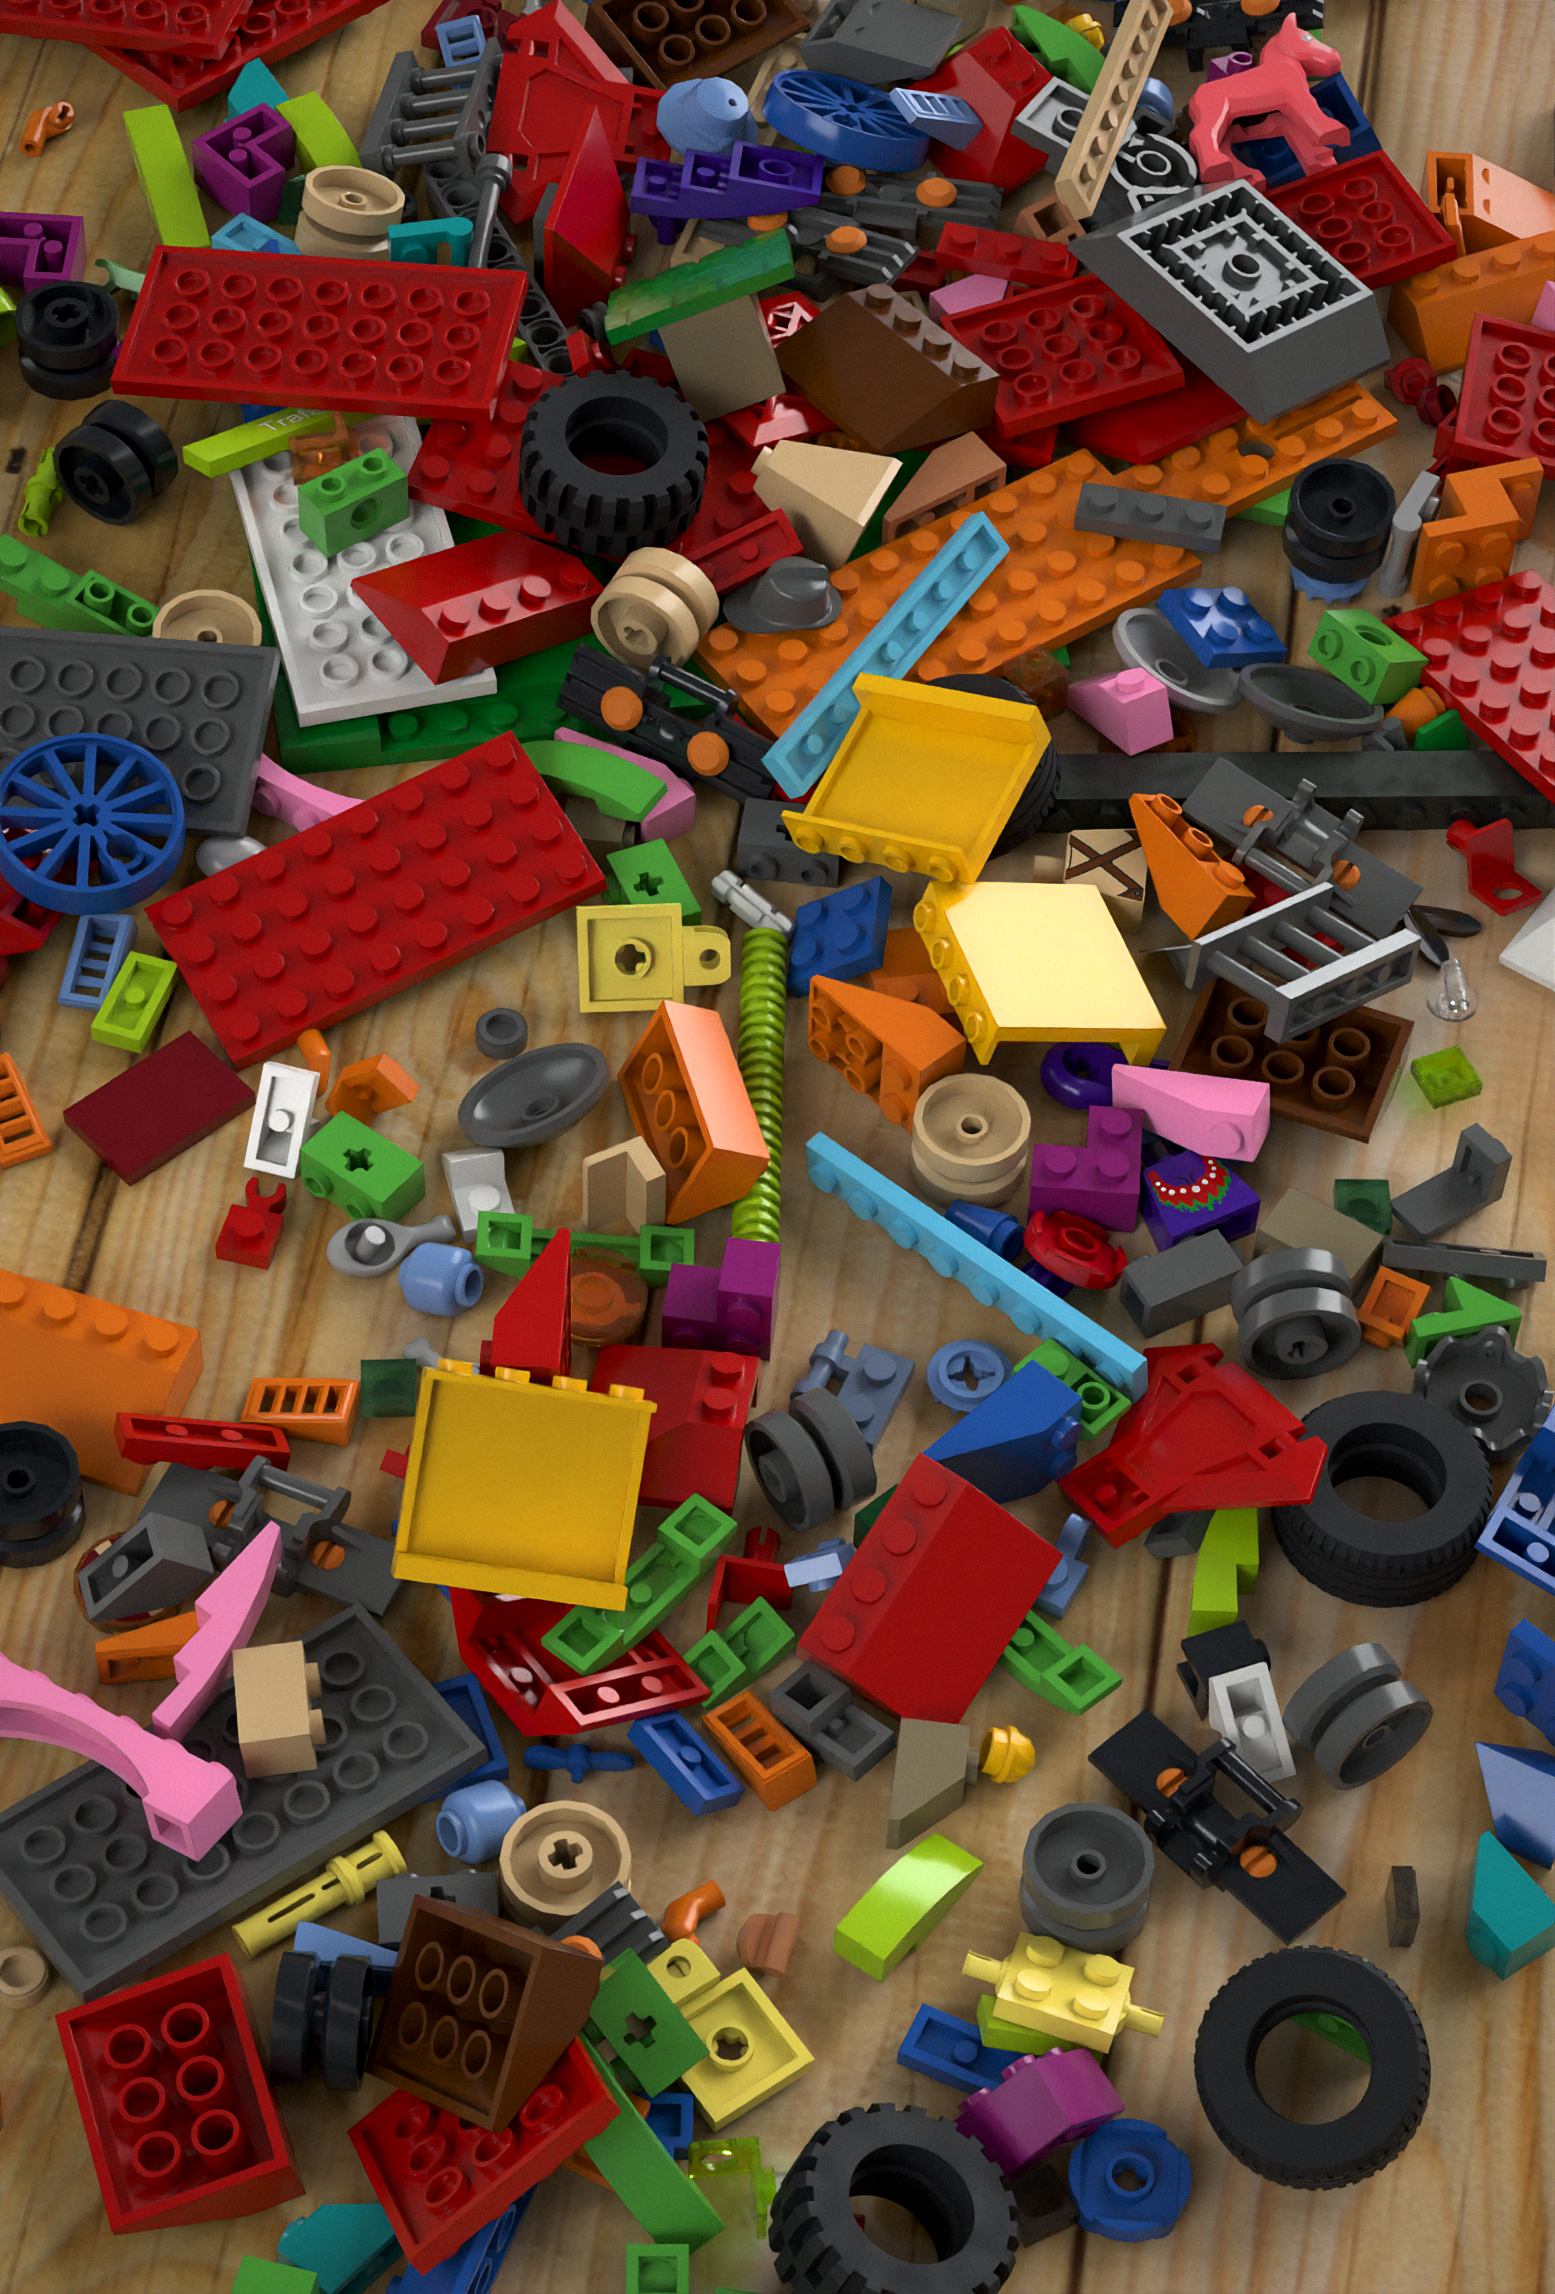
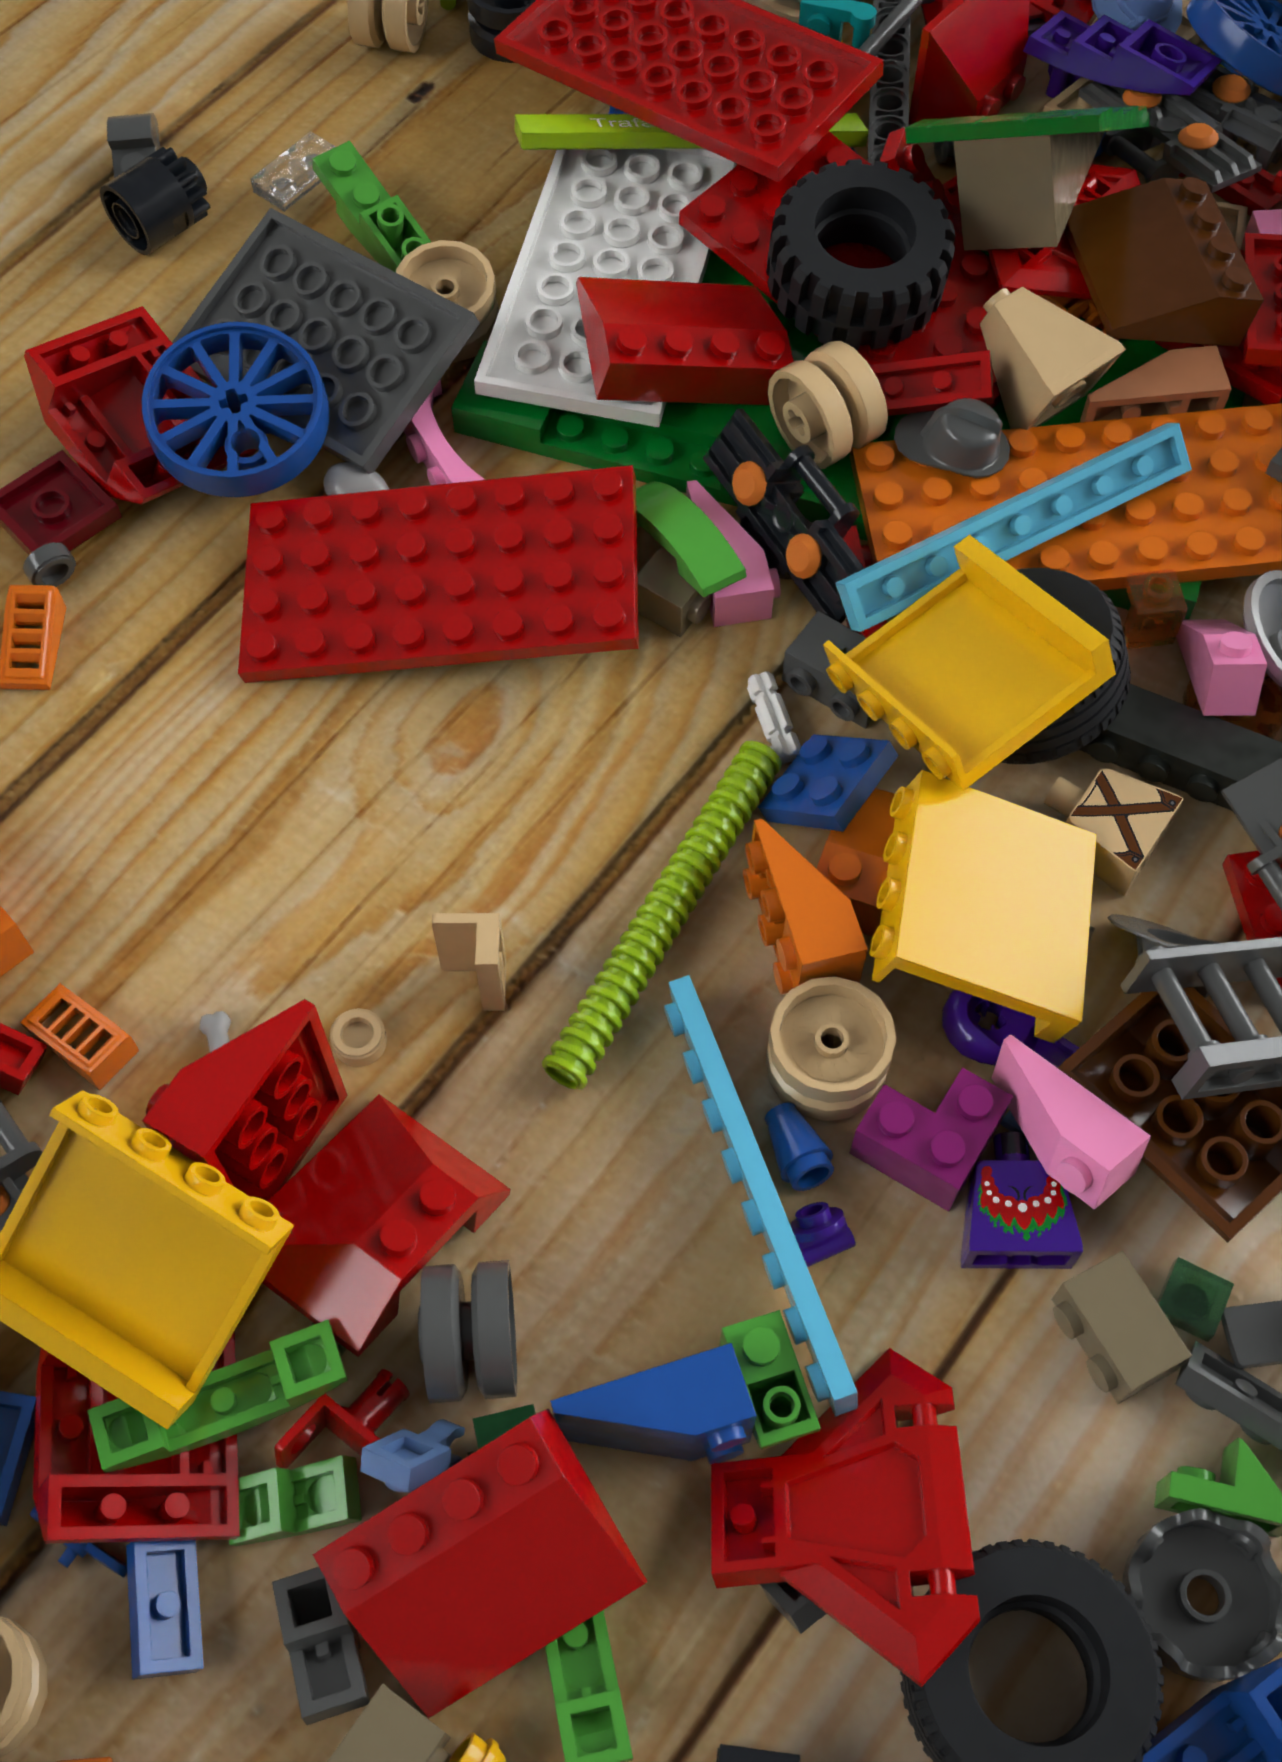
camera: 30 degrees right, 10 degrees up
(42, 495) = (418, 123): lime pin -> none
(109, 925) = (195, 513): medium blue slope -> none
(115, 462) = (474, 113): black wheel -> none
(135, 1002) = (195, 584): lime plate -> none
(159, 1108) = (155, 689): dark red tile -> none
(253, 1231) = (156, 839): red plate -> none
(282, 1119) = (236, 748): white slope -> none
(316, 1056) = (305, 705): orange arm -> none
(322, 451) = (631, 162): clear orange bracket -> none
(353, 502) = (627, 211): bright green brick -> none
(361, 1171) = (275, 853): bright green brick -> none
(371, 1089) = (321, 751): orange bracket -> none
(377, 1245) = (241, 902): light grey piece -> none
(388, 1388) = (160, 1050): clear green plate -> none
(441, 1279) = (270, 964): medium blue head -> none
(476, 1185) = (366, 888): white slope -> none
(501, 1034) = (482, 744): dark grey tile -> none
(512, 1246) = (410, 996): bright green slope -> none
(534, 1096) = (457, 821): dark grey dish -> none
(605, 1297) = (391, 1046): clear orange tile -> none
(649, 877) = (684, 672): bright green brick -> none
(669, 961) = (663, 736): light yellow plate -> none
(693, 1110) = (586, 903): orange slope -> none
(726, 1306) = (500, 1114): magenta brick -> none
(777, 1779) = (257, 1677): orange slope -> none
(871, 1382) = (585, 1272): sand blue plate -> none
(947, 1368) = (681, 1277): medium blue gear -> none
(1070, 1572) = (662, 1565): medium blue plate -> none
(1074, 1249) = (868, 1214): red tile -> none
(1180, 1282) = (961, 1298): dark grey brick -> none
(1188, 876) = (1197, 858): orange slope -> none
(1224, 1569) = (821, 1658): lime slope -> none
(1294, 1313) = (1049, 1404): dark grey wheel -> none
(1390, 1308) = (1160, 1437): orange bracket -> none

